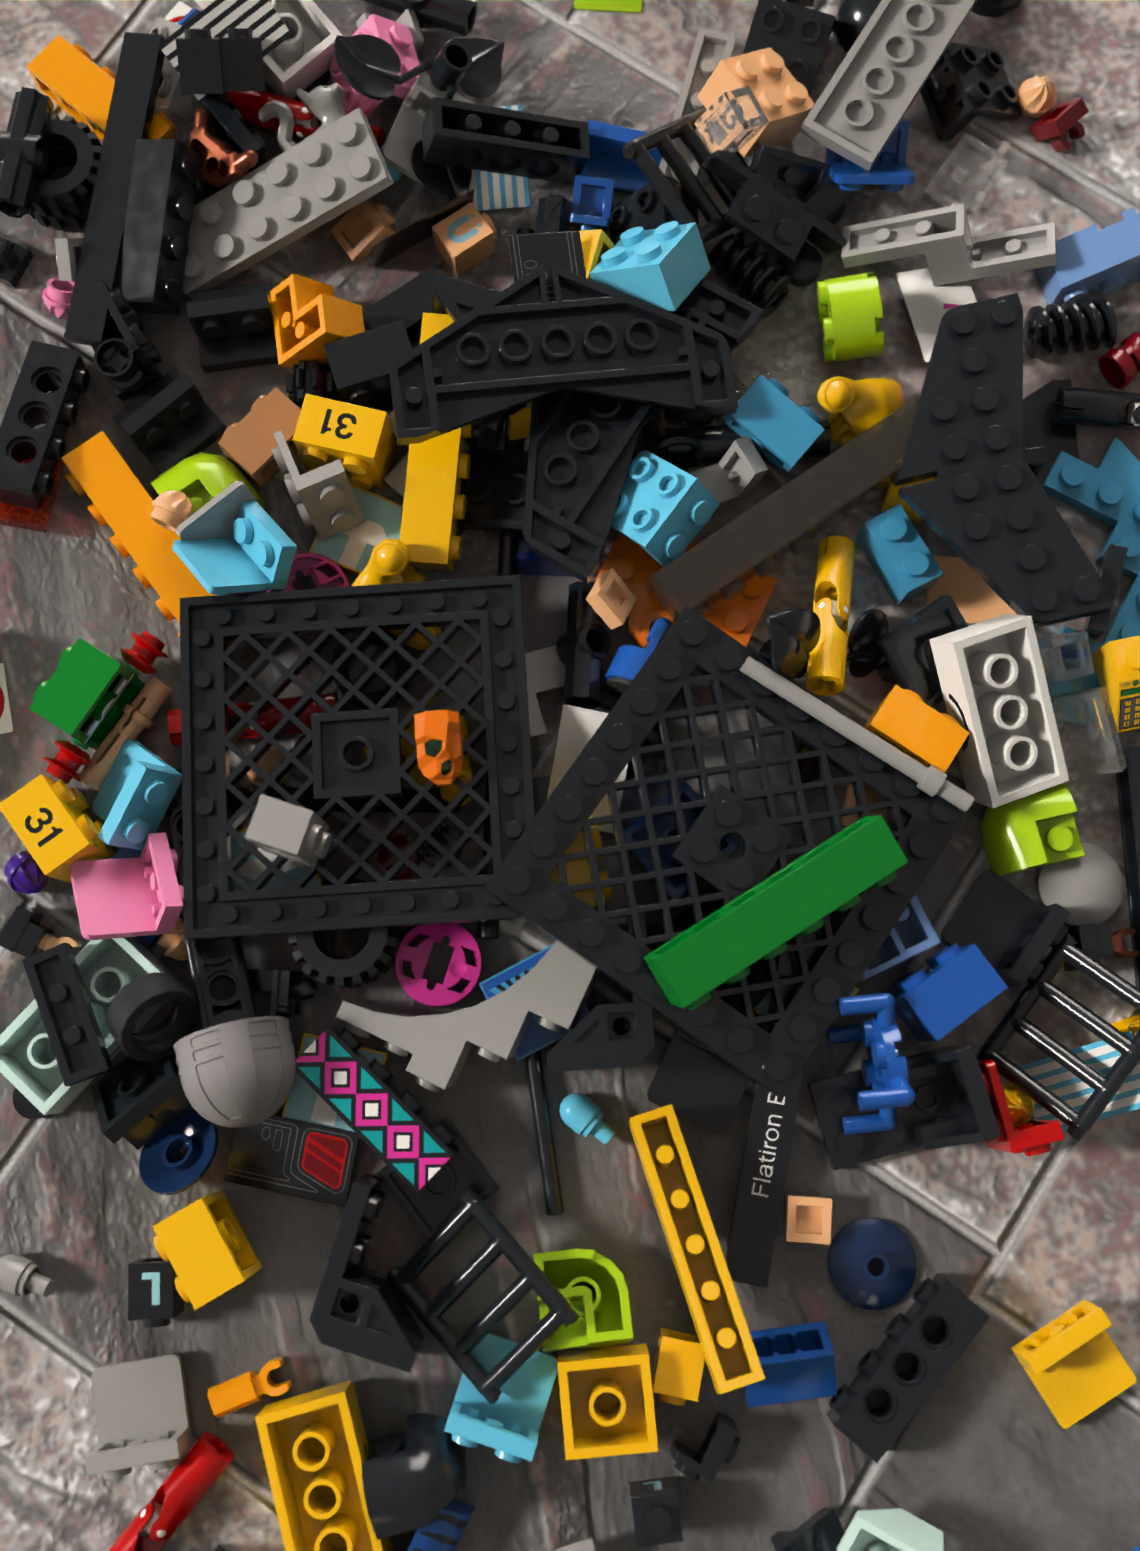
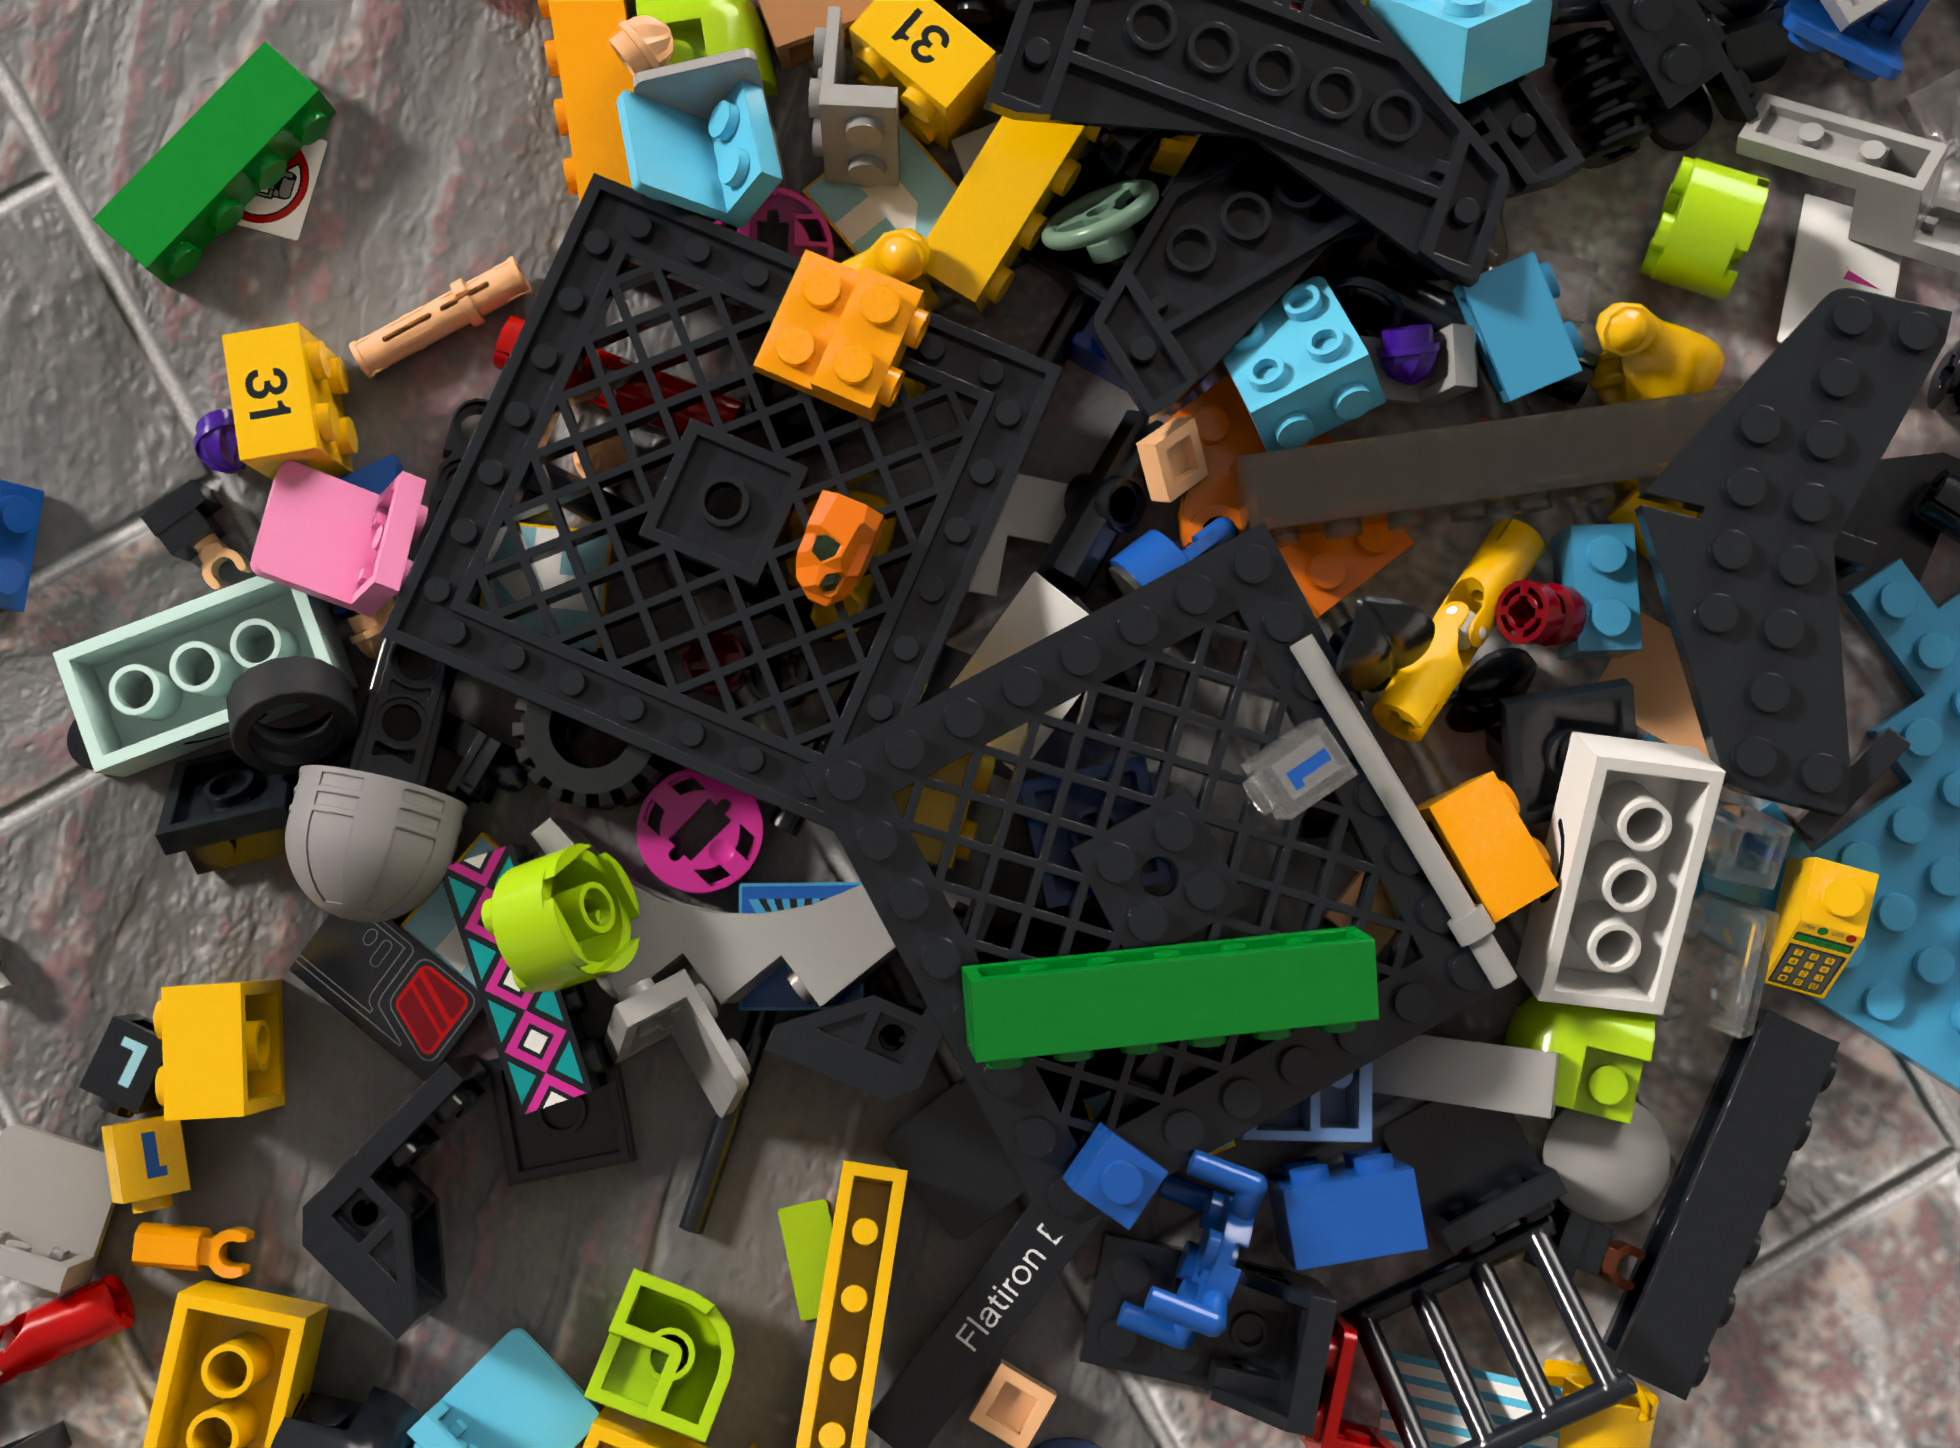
camera: 25 degrees right, 5 degrees up
(67, 1014) = (183, 657): black plate -> none
(89, 695) = (412, 246): green brick -> none
(134, 796) = (410, 410): medium azure bracket -> none
(179, 1154) = (244, 909): dark blue dish -> none
(193, 1347) = (145, 1162): none -> yellow brick
(289, 831) = (579, 565): light grey brick -> none
(379, 619) = (843, 335): none -> light orange plate
(384, 1055) = (563, 919): none -> lime brick
(490, 1080) = (686, 1012): none -> light grey bracket
(499, 480) = (1102, 220): none -> sand green piece
(531, 1278) = (611, 1299): black bar -> none
(585, 1117) = (790, 1127): medium azure cylinder -> none
(632, 1186) = (807, 1239): none -> lime sticker
(718, 469) = (1409, 353): none -> dark purple plate
(782, 739) = (1296, 770): none -> clear brick
(801, 1036) = (1114, 1176): none -> blue brick
(874, 581) = (1540, 613): none -> dark red wheel
(976, 873) = (1470, 1075): none -> light grey tile
(1019, 1104) = (1363, 1401): yellow plate -> none

